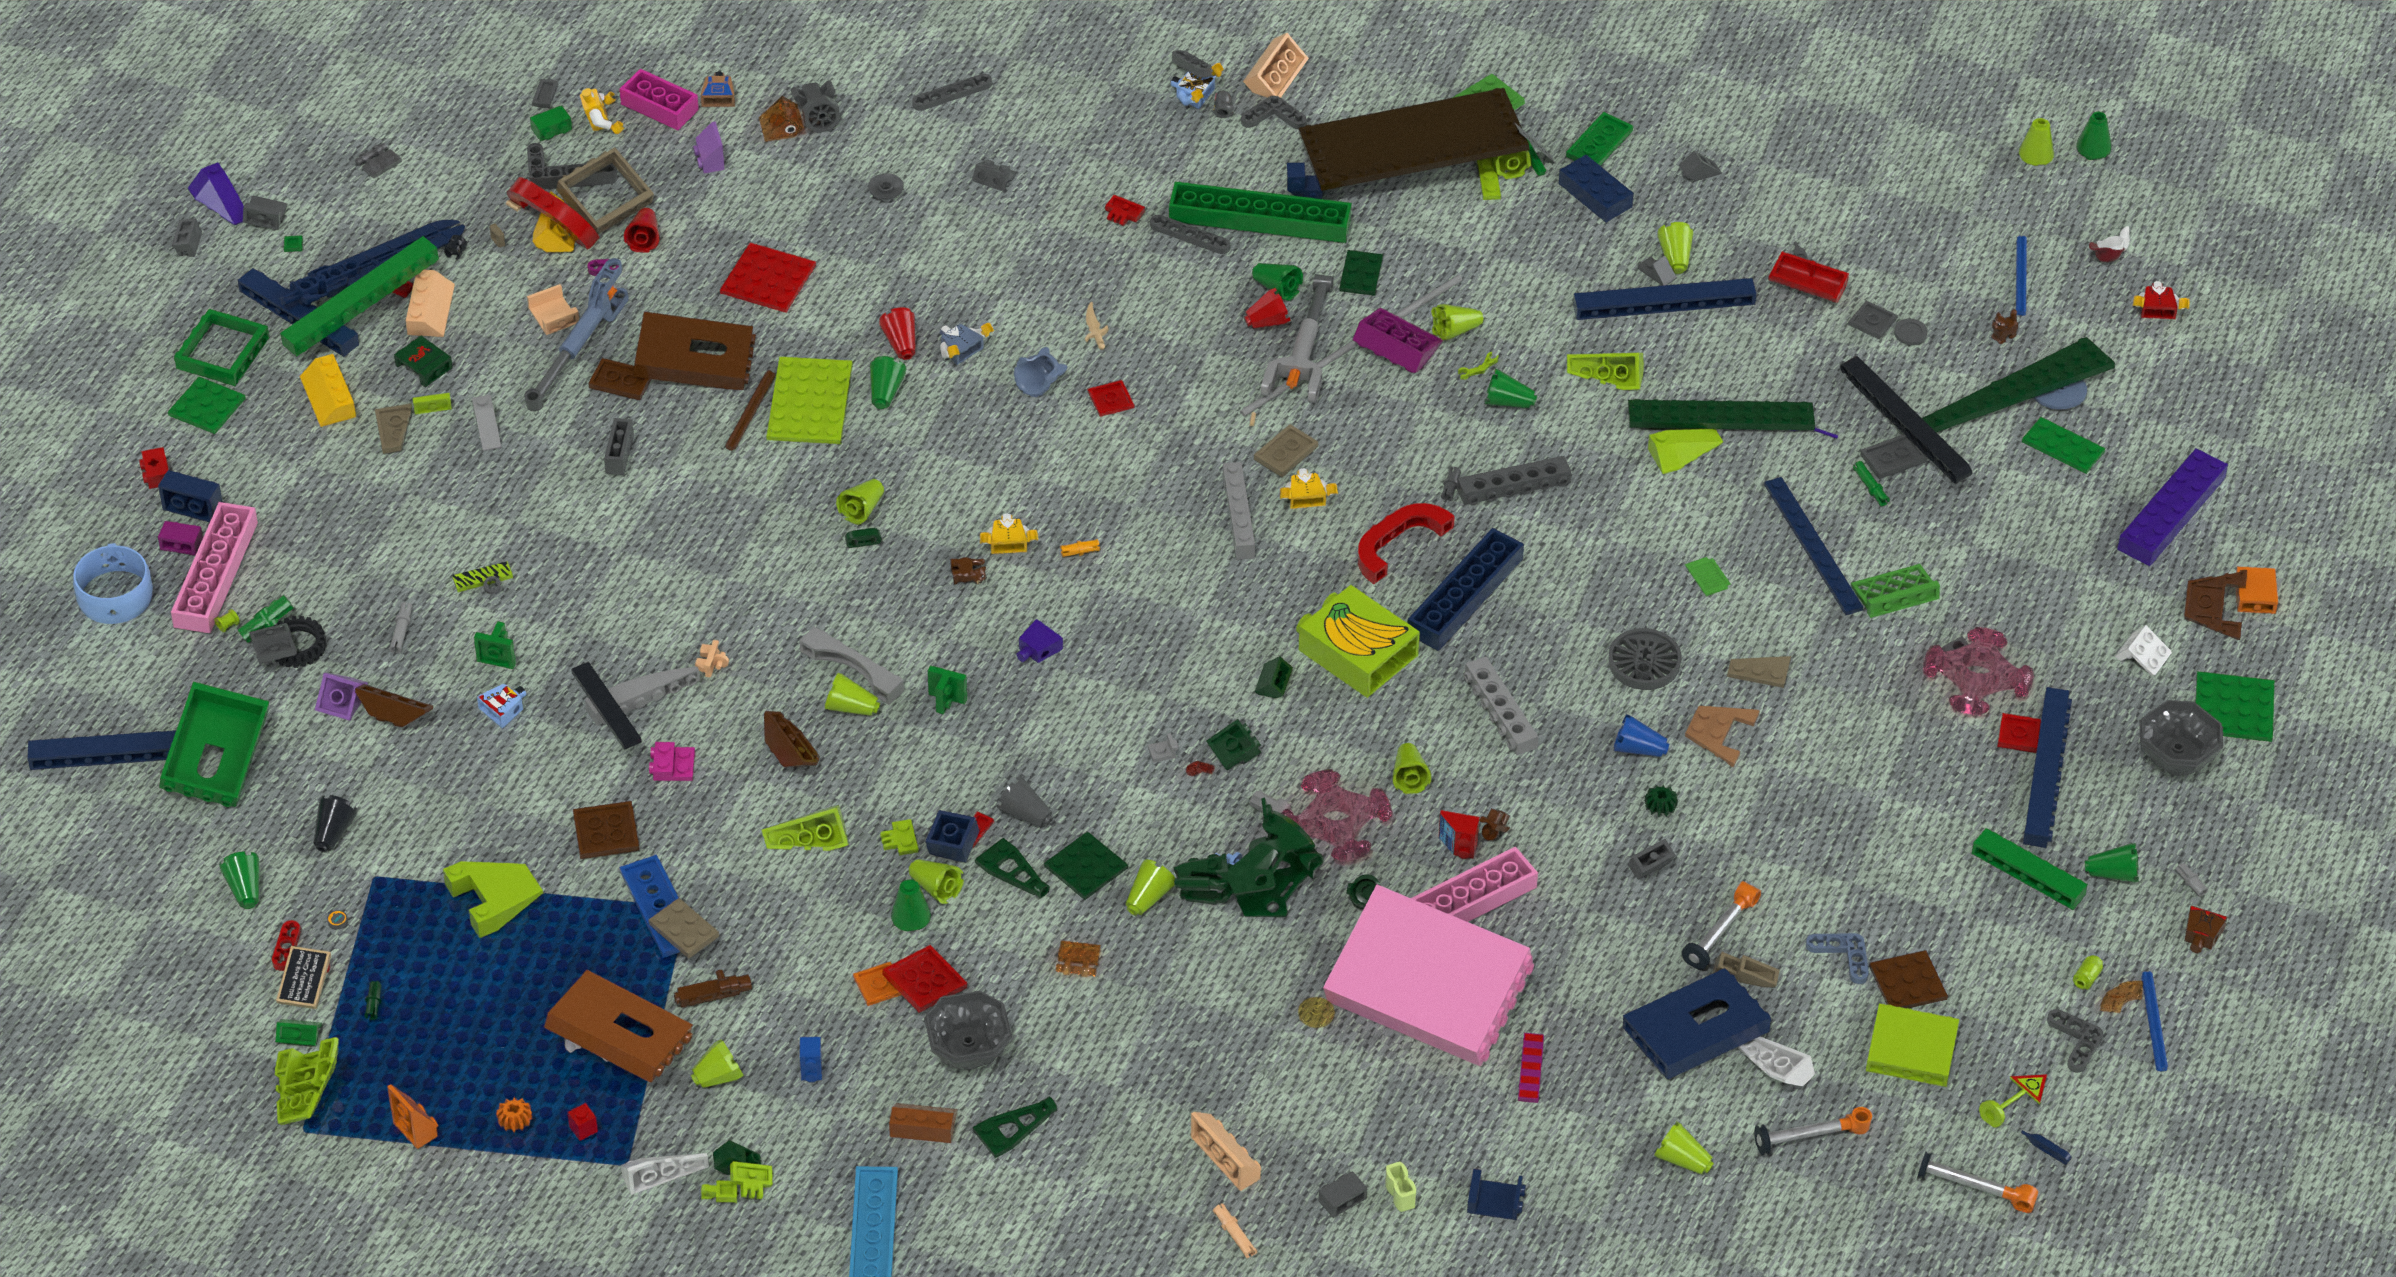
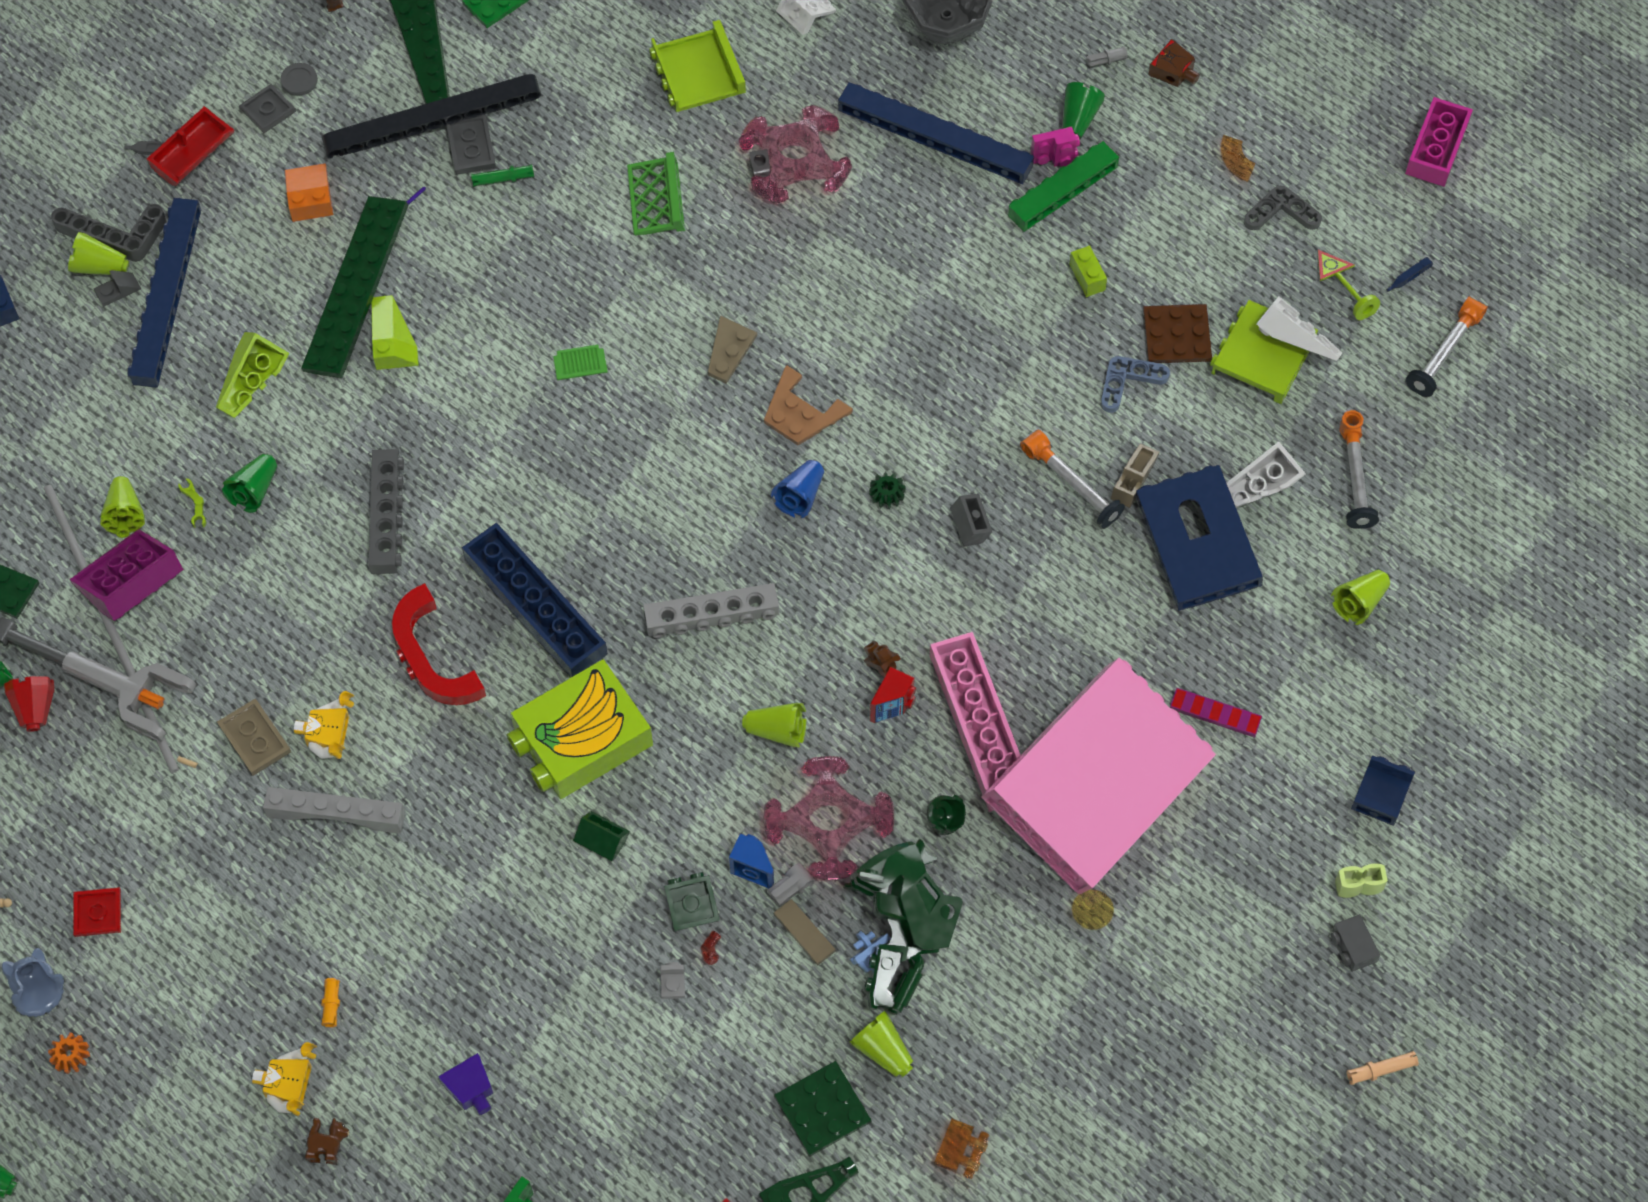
camera: 75 degrees left, 15 degrees up
(992, 408) = (78, 1050): none -> orange gear
(1025, 804) = (720, 1156): dark grey cone -> none
(1224, 1150) = (1277, 1050): light nougat slope -> none
(1233, 825) = (804, 932): none -> dark tan tile
(1280, 770) = (751, 861): none -> blue slope
(1450, 483) = (364, 577): dark grey pin -> none
(1642, 670) = (683, 452): dark grey piece -> none
(1706, 270) = (69, 222): none -> dark grey beam
(1798, 363) = (308, 192): none -> orange slope
(1813, 546) = (569, 253): dark blue plate -> none
(1937, 1049) = (1283, 323): none -> white wedge
(1943, 900) = (1088, 271): none -> lime brick
(2019, 732) = (882, 144): red plate -> none
(2041, 589) = (698, 68): none -> lime panel
(2064, 849) = (1056, 146): none -> dark pink plate
(2088, 972) = (1204, 176): lime head -> none
(2154, 1021) = (1274, 140): blue axle -> none
(2205, 1143) = (1439, 141): none -> dark pink brick

